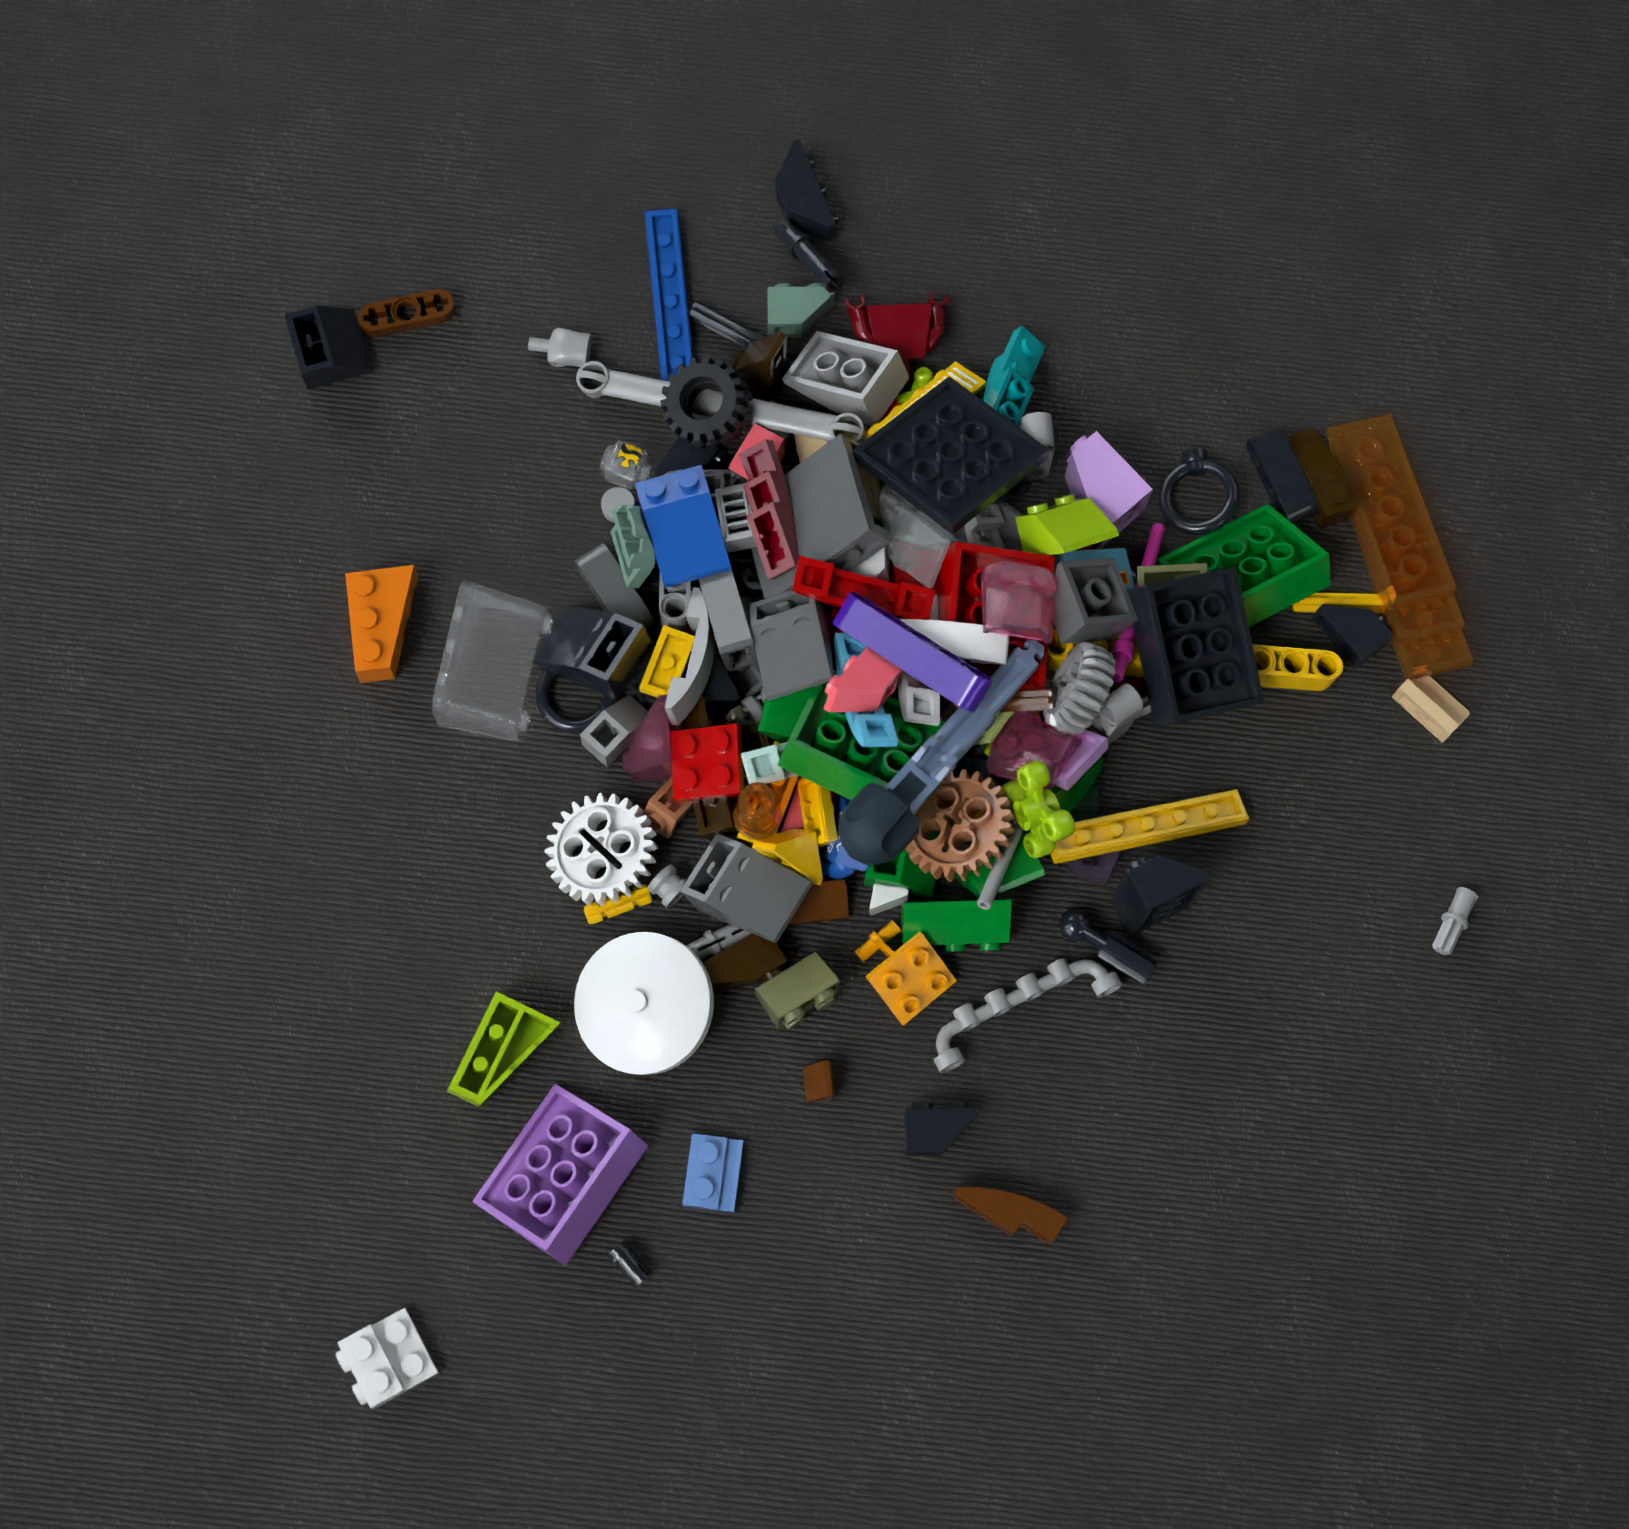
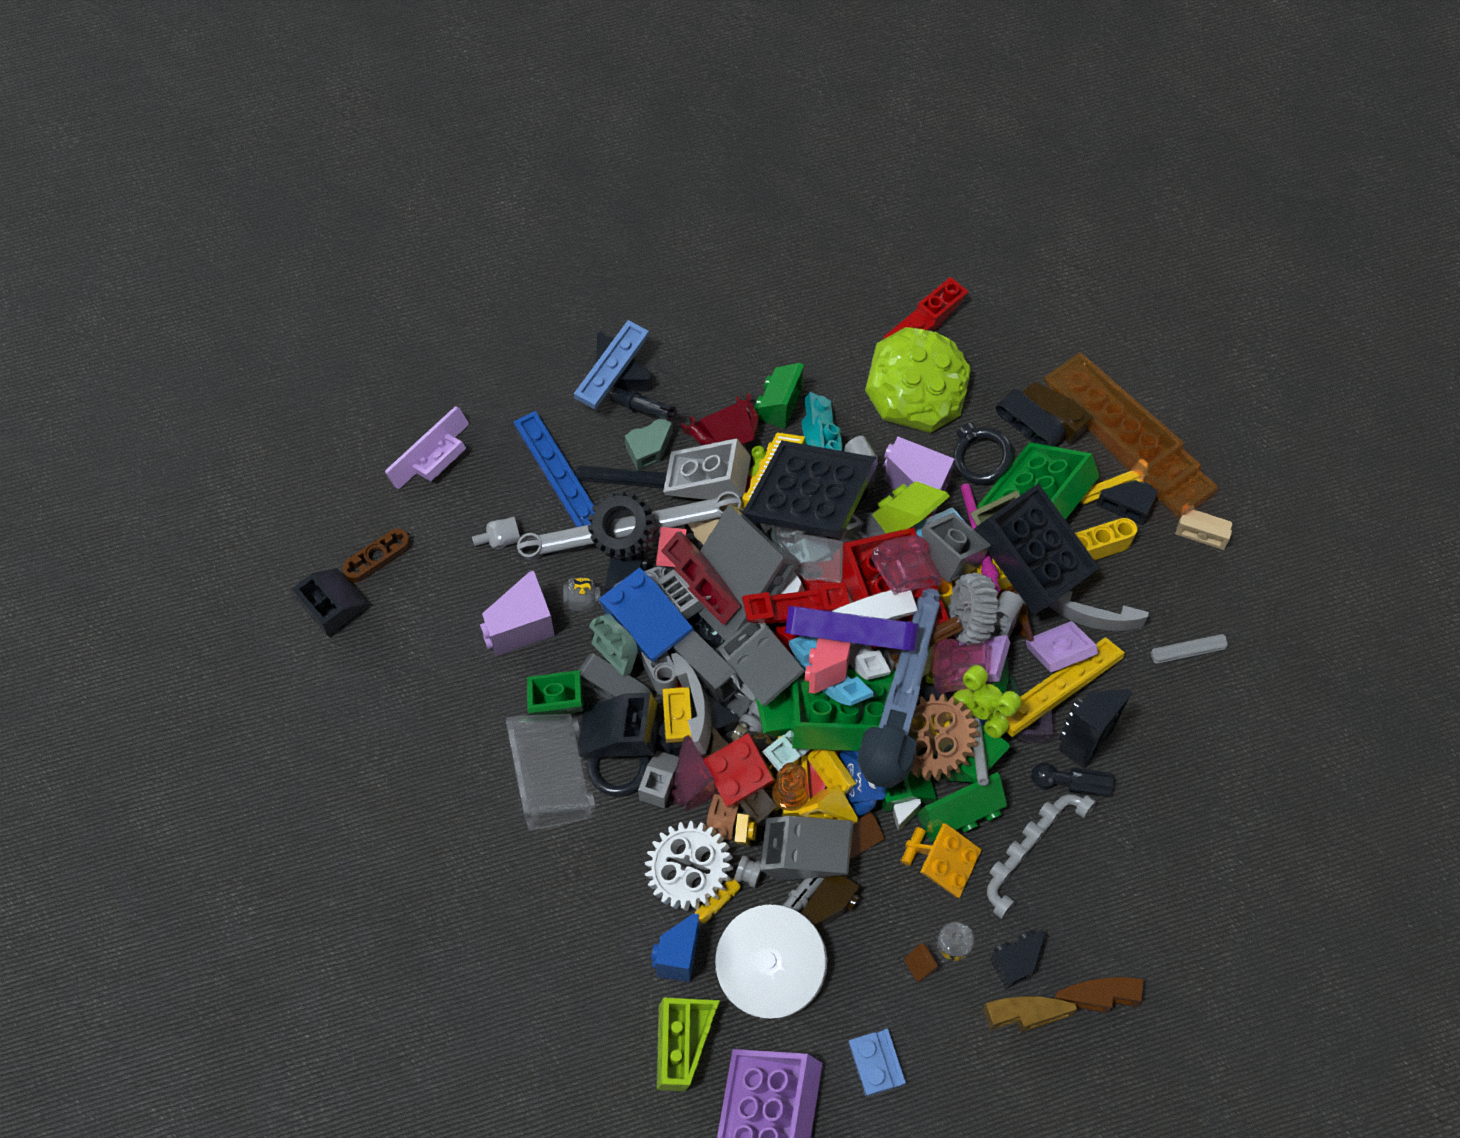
camera: 20 degrees left, 10 degrees down
(378, 618) = (452, 771): orange wedge -> none
(528, 209) = (432, 451): none -> lavender bracket
(535, 462) = (517, 617): none -> lavender slope
(537, 575) = (555, 693): none -> green slope
(541, 942) = (676, 950): none -> blue slope
(613, 498) = (583, 622): light grey tile -> none
(683, 837) = (745, 830): none -> yellow plate
(763, 364) = (647, 483): dark brown slope -> none
(791, 189) = (611, 364): none -> medium blue plate
(797, 991) = (875, 903): olive slope -> none
(874, 1087) = (954, 950): none -> clear head
(915, 1193) = (1027, 1012): none -> pearl gold slope
(984, 315) = (780, 395): none -> green slope
(1143, 730) = (1023, 624): none -> reddish brown slope
(1165, 365) = (918, 379): none -> lime rock
(1174, 778) = (1062, 646): none -> lavender plate
(1215, 290) = (934, 308): none -> red slope
(1276, 777) = (1097, 618): none -> light grey slope
(1333, 847) = (1189, 648): none -> light grey axle
(1454, 920) = (1294, 662): light grey axle -> none

